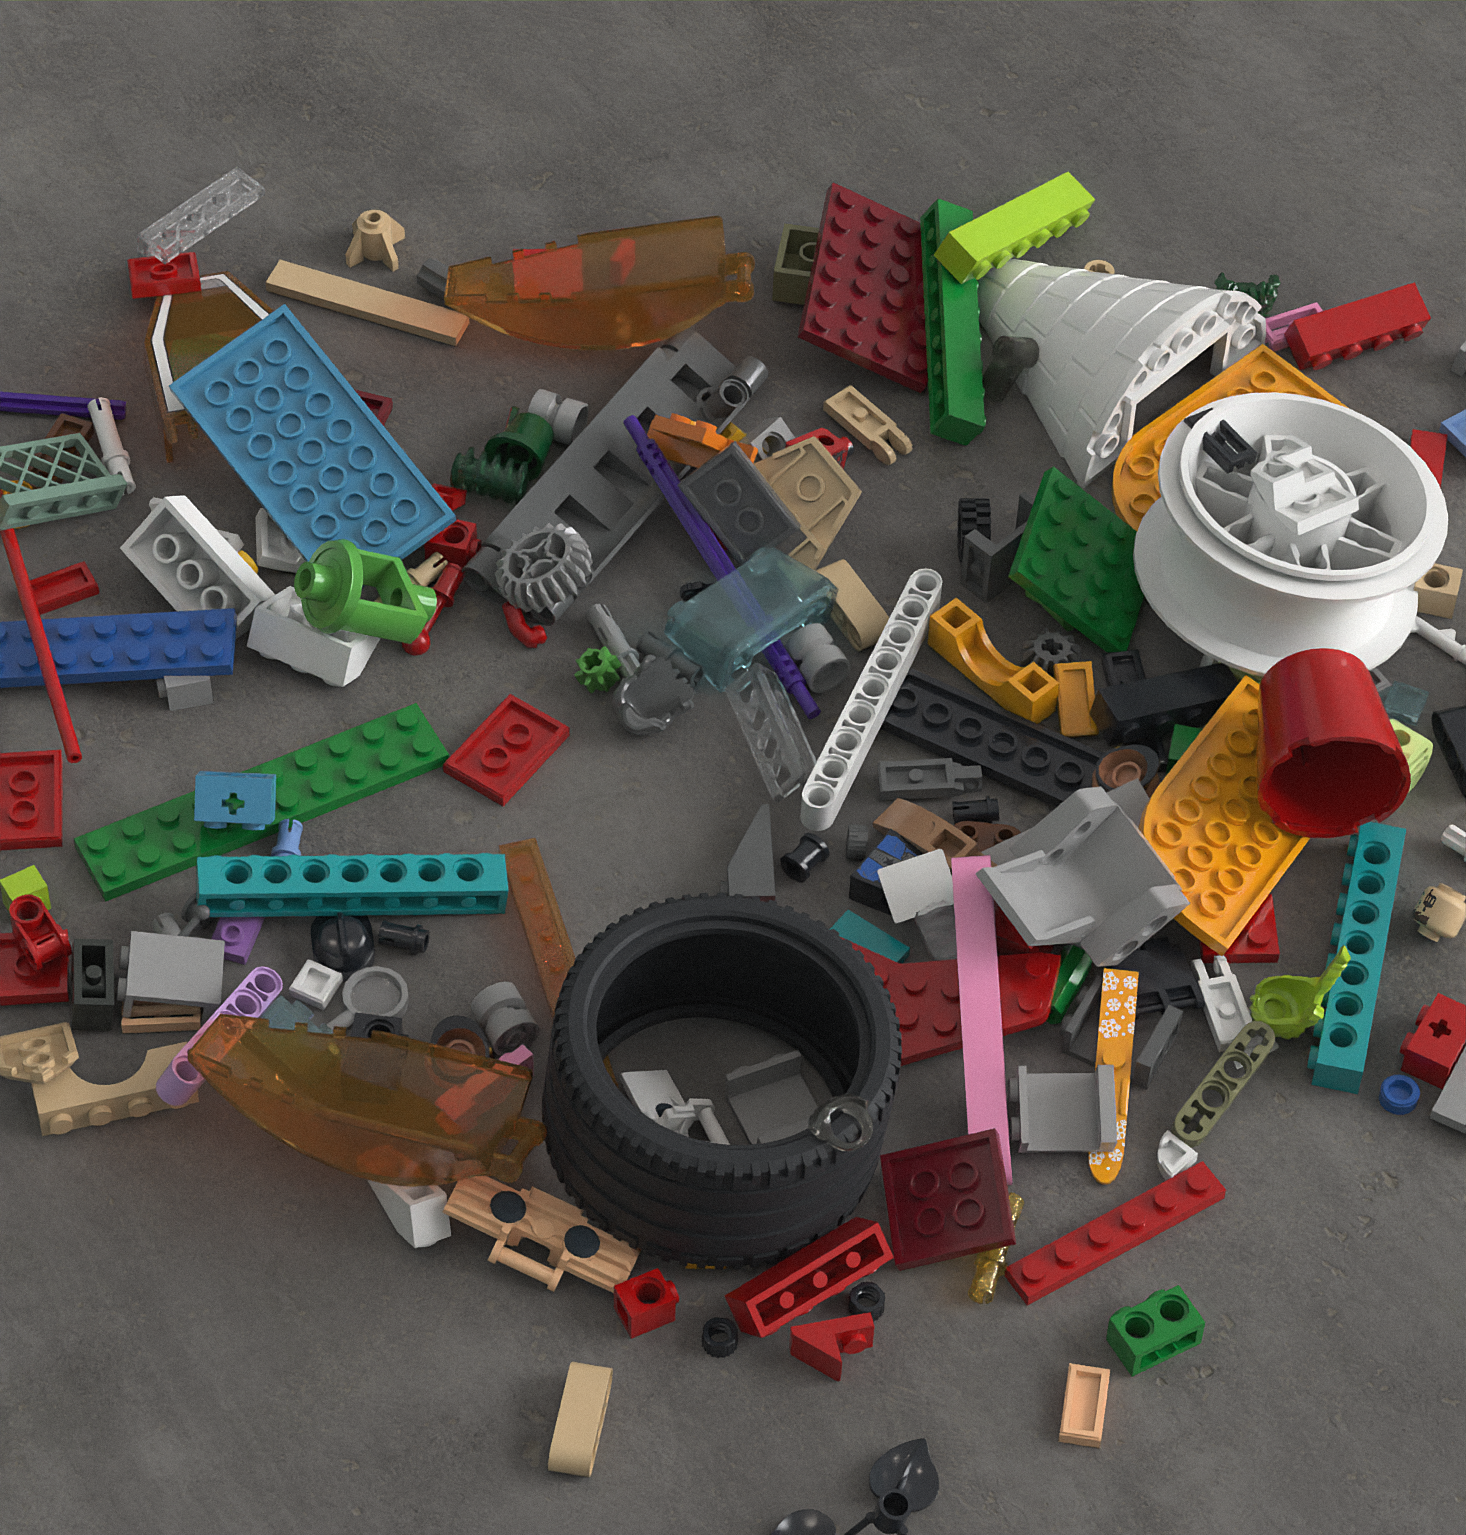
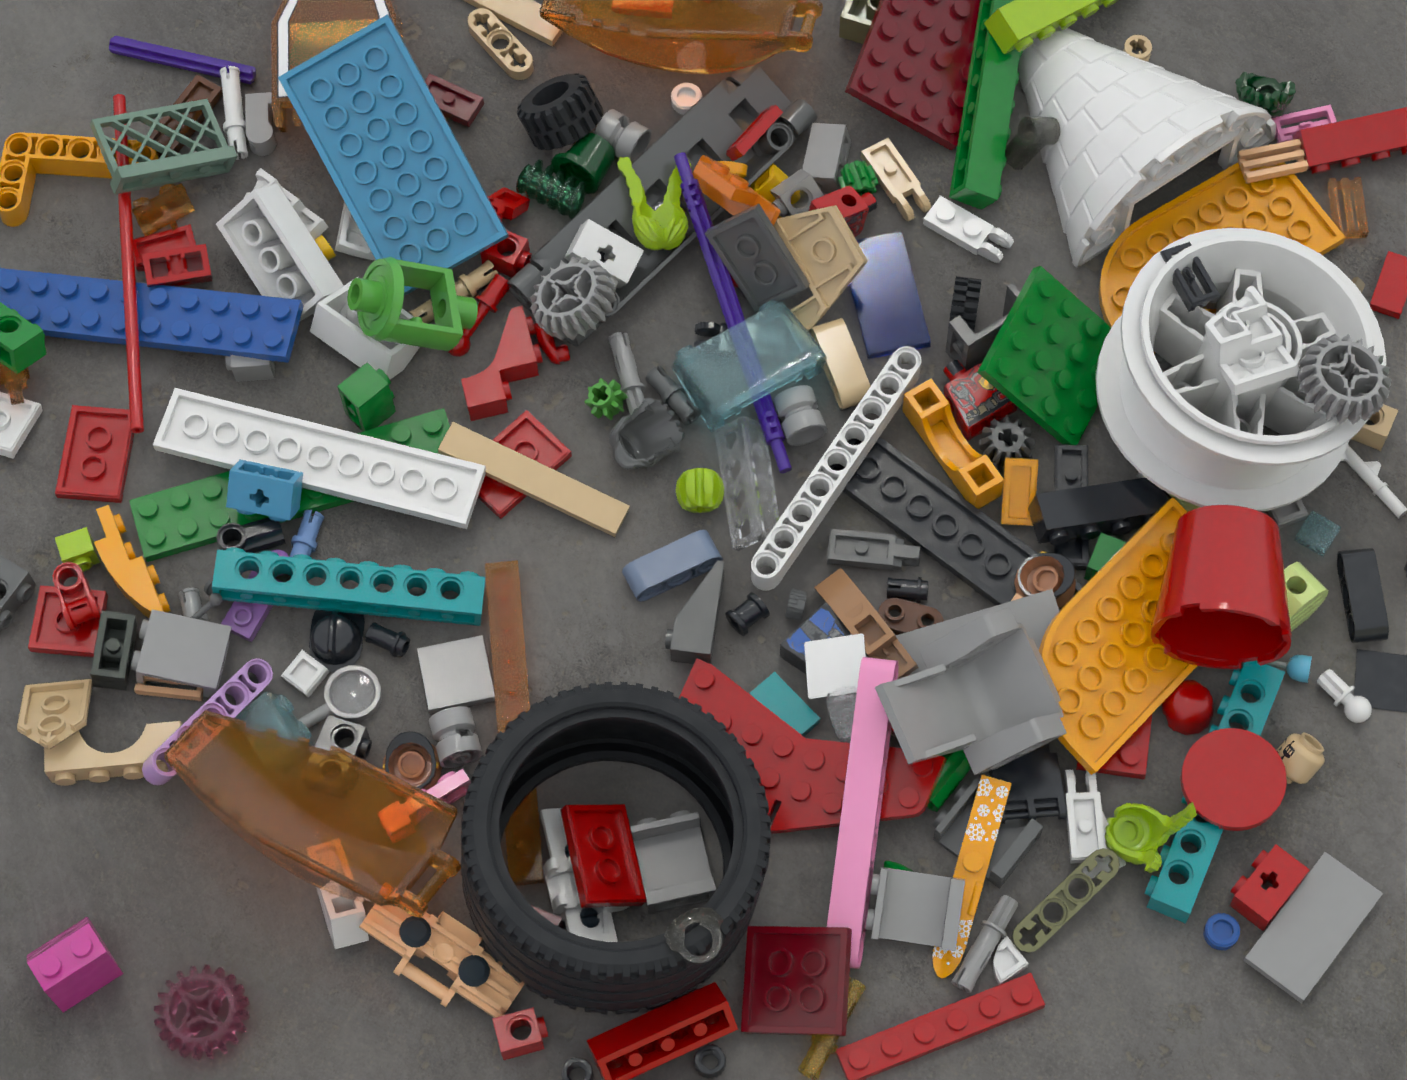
camera: 15 degrees right, 15 degrees up
(51, 548) = (163, 209): none -> clear orange hips
(83, 596) = (177, 266): none -> red brick
(87, 909) = (128, 571): none -> light orange slope
(116, 1303) = (73, 965): none -> dark pink slope
(143, 444) = (259, 123): none -> light grey leg
(237, 845) = (252, 536): none -> black piece
(278, 1349) = (209, 1001): none -> clear pink gear
(304, 761) = (329, 457): none -> white plate
(329, 697) = (367, 397): none -> green brick
(402, 361) = (501, 56): none -> tan beam
(485, 396) = (560, 111): none -> black tyre
(488, 645) = (514, 360): none -> arch
(488, 957) = (456, 674): none -> light grey tile
(535, 756) = (535, 479): none -> tan tile
(557, 508) = (619, 253): none -> white brick
(615, 375) = (684, 97): none -> white tile
(618, 497) = (657, 228): none -> lime hair
(700, 1099) = (603, 855): none -> red tile
(705, 390) = (753, 132): none -> red tile
(708, 821) = (671, 565): none -> sand blue beam
(724, 743) = (699, 490): none -> lime piece
(789, 400) = (827, 154): none -> light grey hinge
(829, 419) = (858, 176): none -> green gear
(885, 538) = (888, 298): none -> clear blue tile
(957, 465) = (966, 229): none -> white hinge
(1009, 615) = (974, 399): none -> torso
(1141, 1152) = (985, 944): none -> light grey axle
(1267, 353) = (1270, 156): none -> light nougat tile
(1309, 884) = (1189, 708): none -> red hair
(1369, 387) = (1346, 185): none -> clear orange tile
(1383, 932) = (1233, 779): none -> red tile
(1408, 508) = (1334, 384): none -> light grey gear
(1417, 829) = (1297, 667): none -> medium azure hinge

